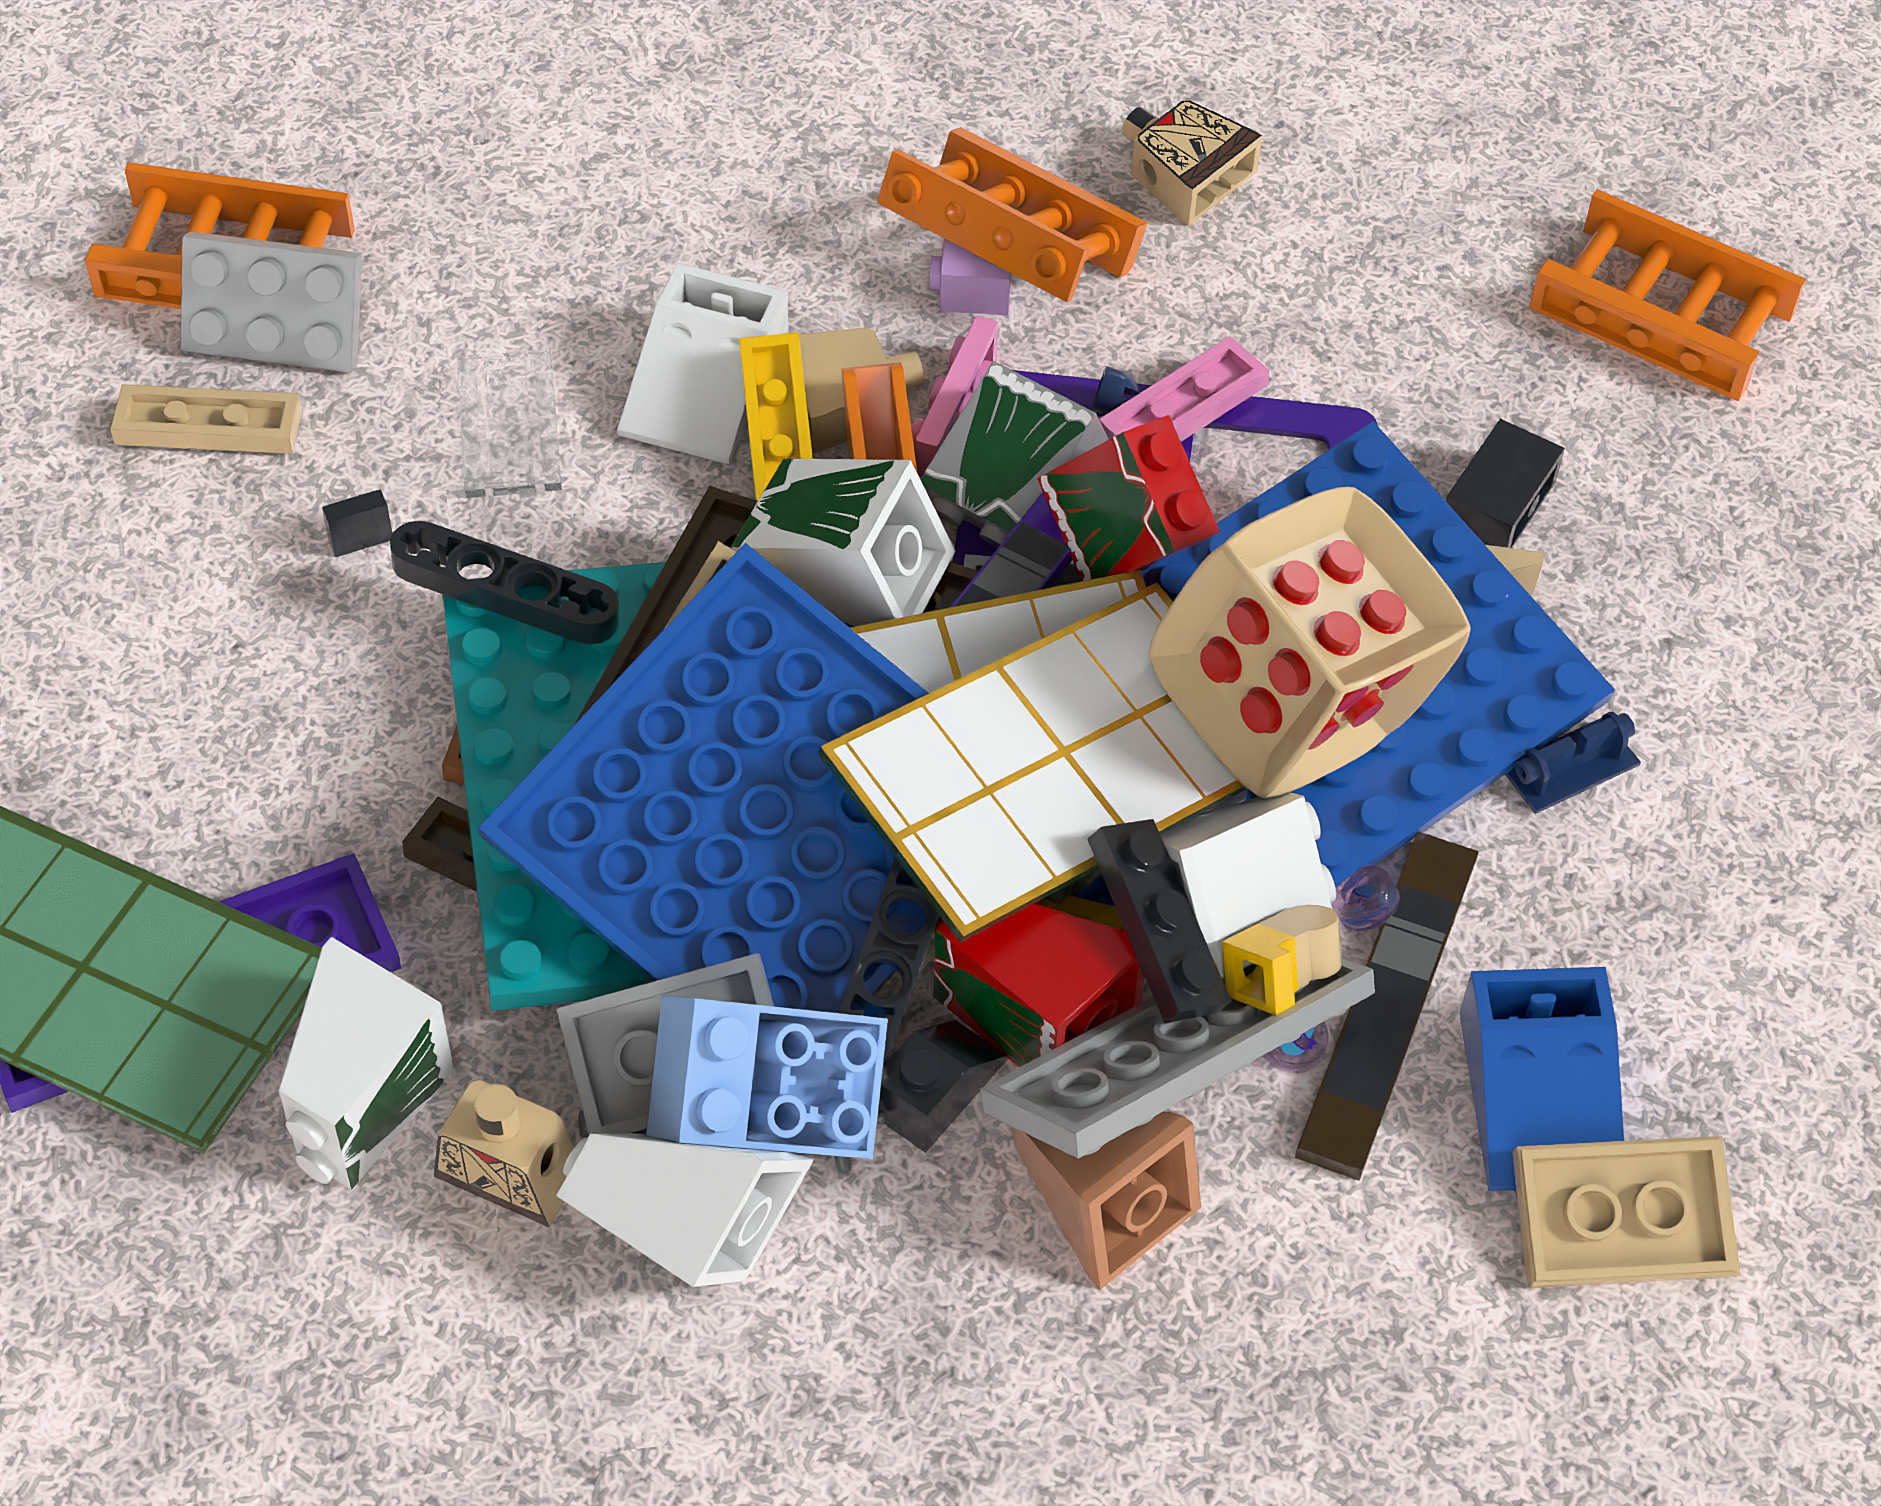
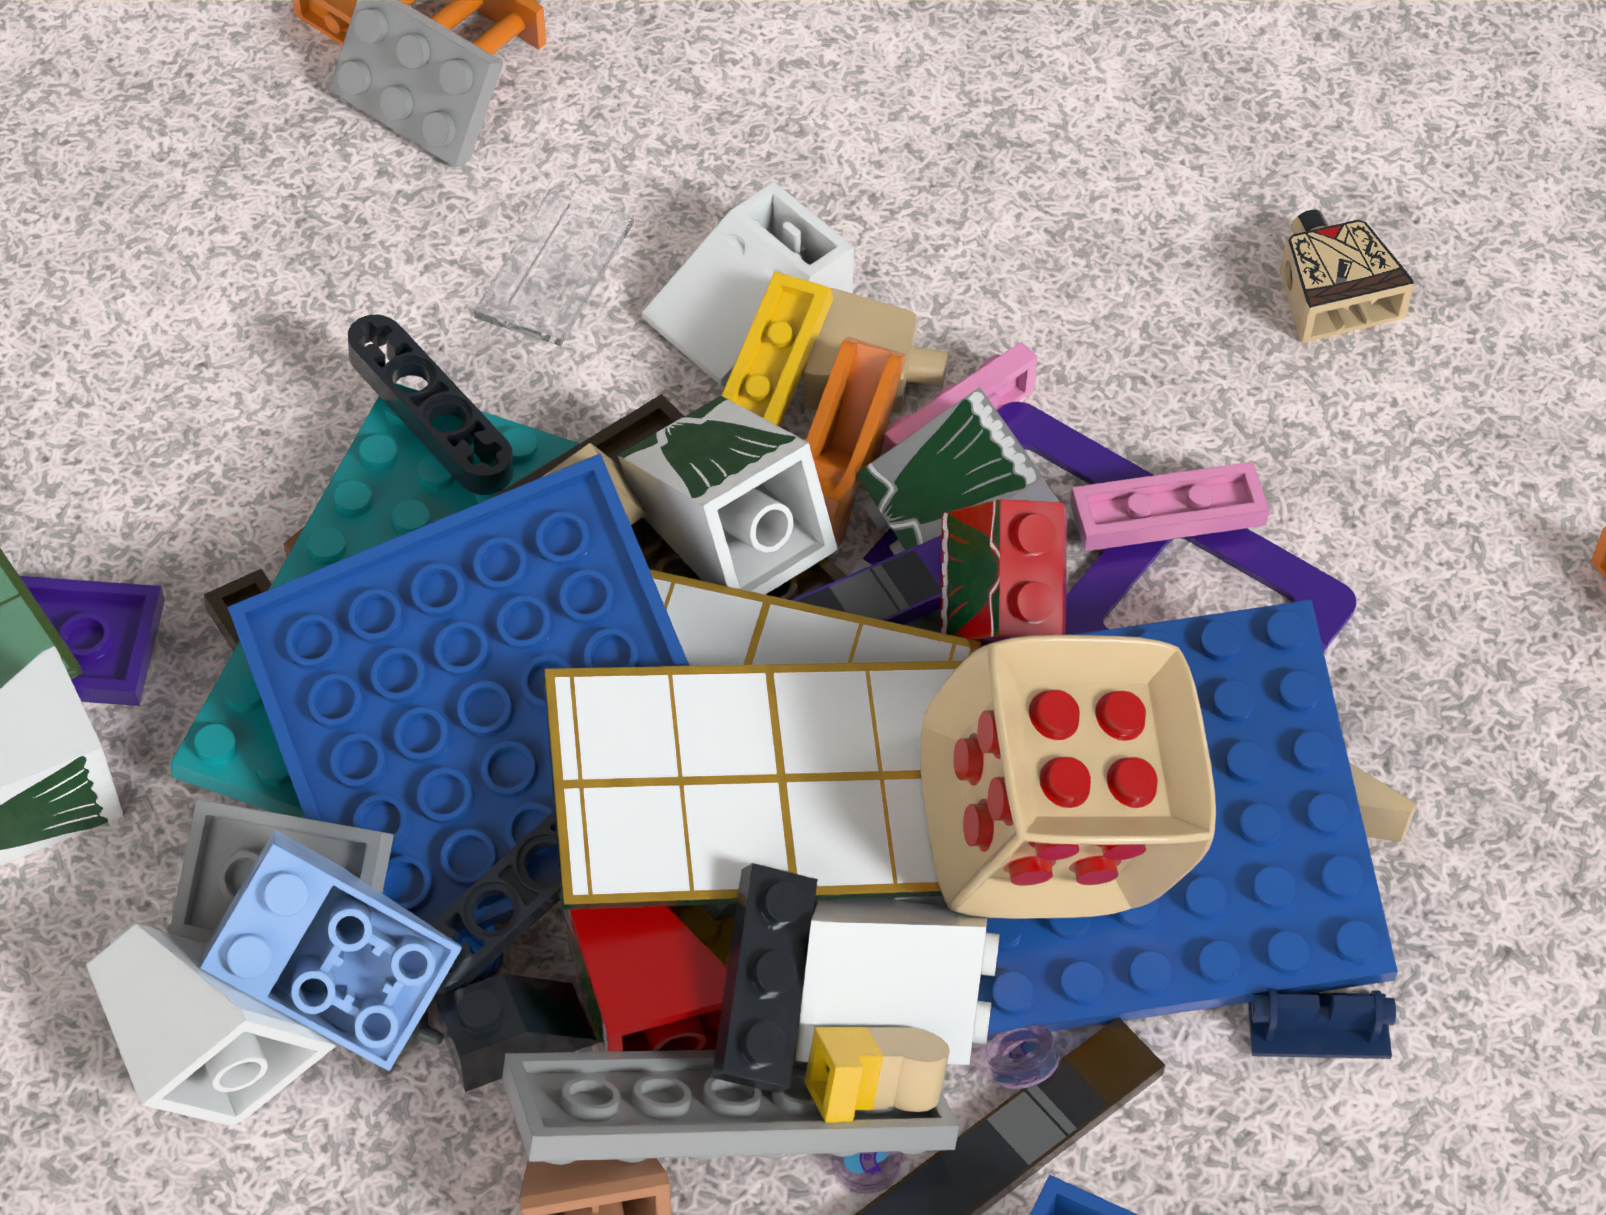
camera: 30 degrees right, 0 degrees up
(206, 418) = (306, 157): tan plate -> none
(357, 523) = (359, 296): black tile -> none
(497, 1151) = (88, 891): tan torso -> none
(969, 282) = (1056, 304): lavender brick -> none
(1012, 213) = (1148, 240): orange fence -> none
(1111, 389) = (1109, 464): dark blue hinge -> none
(1505, 483) = (1429, 724): black panel -> none

